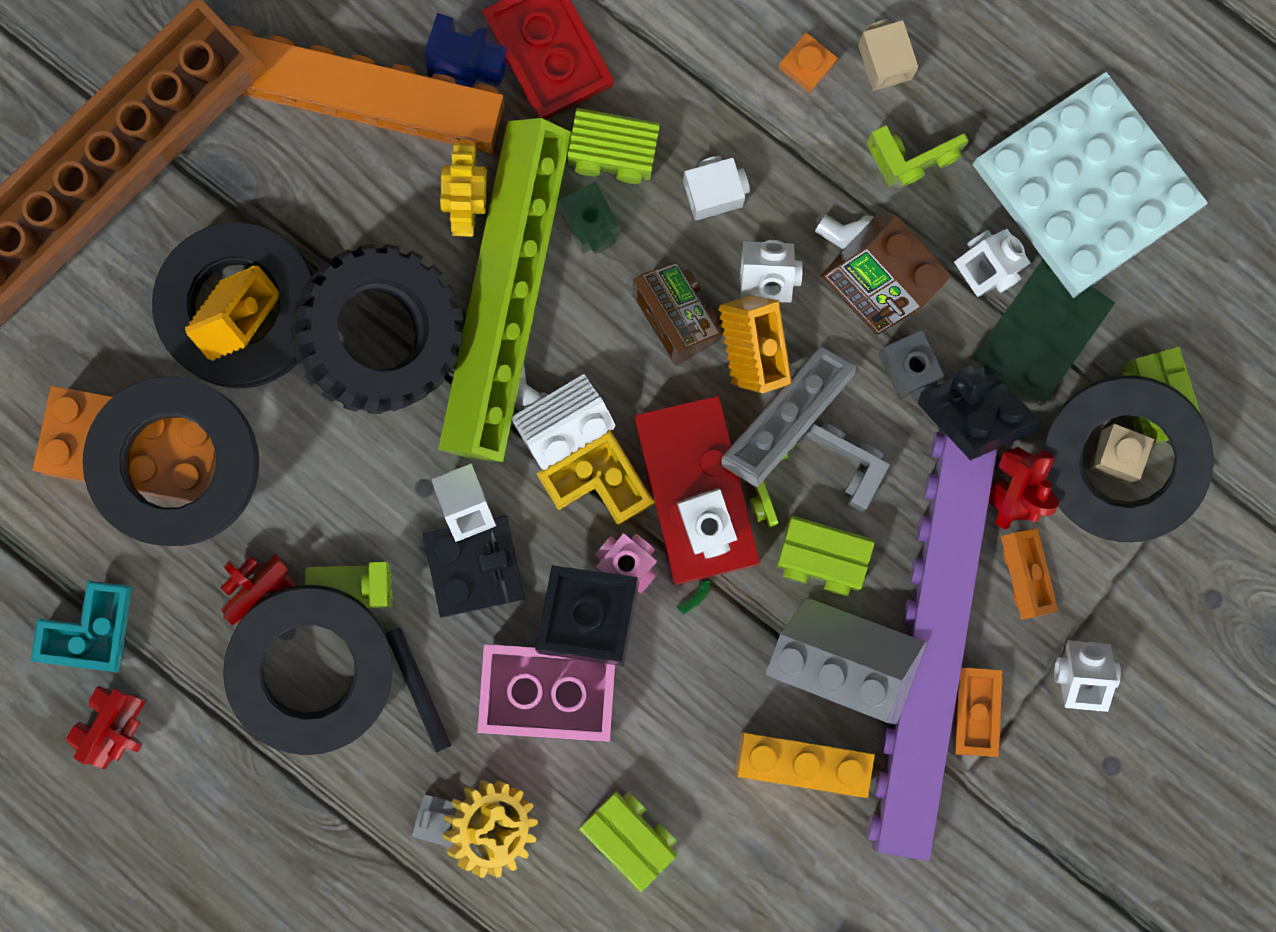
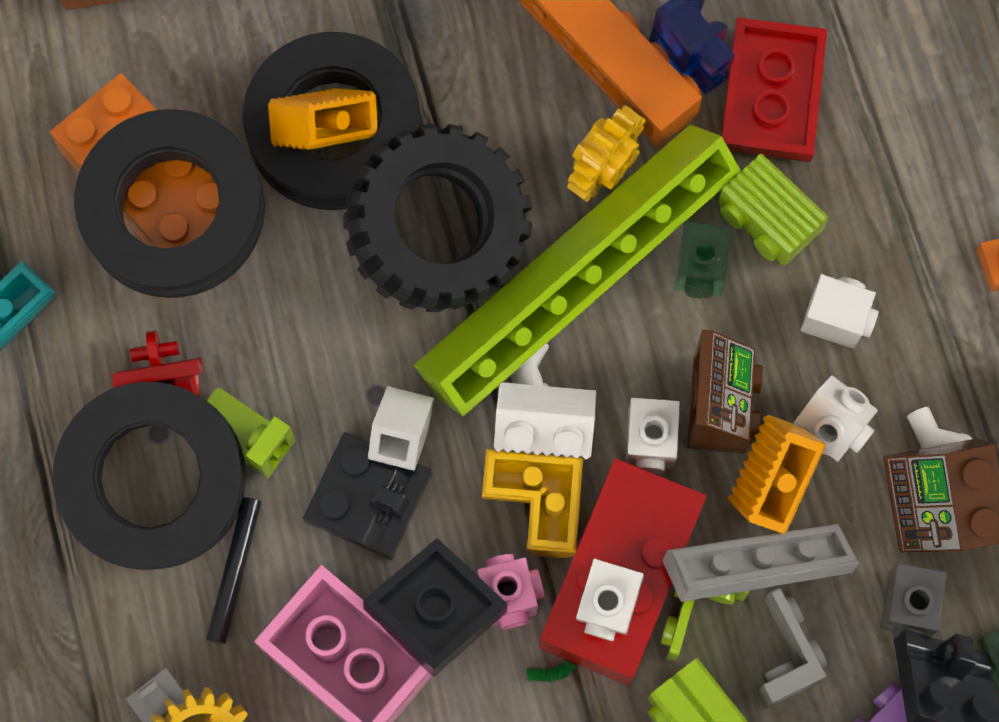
camera: 45 degrees right, 10 degrees down
(646, 377) = (652, 434): none -> white brick

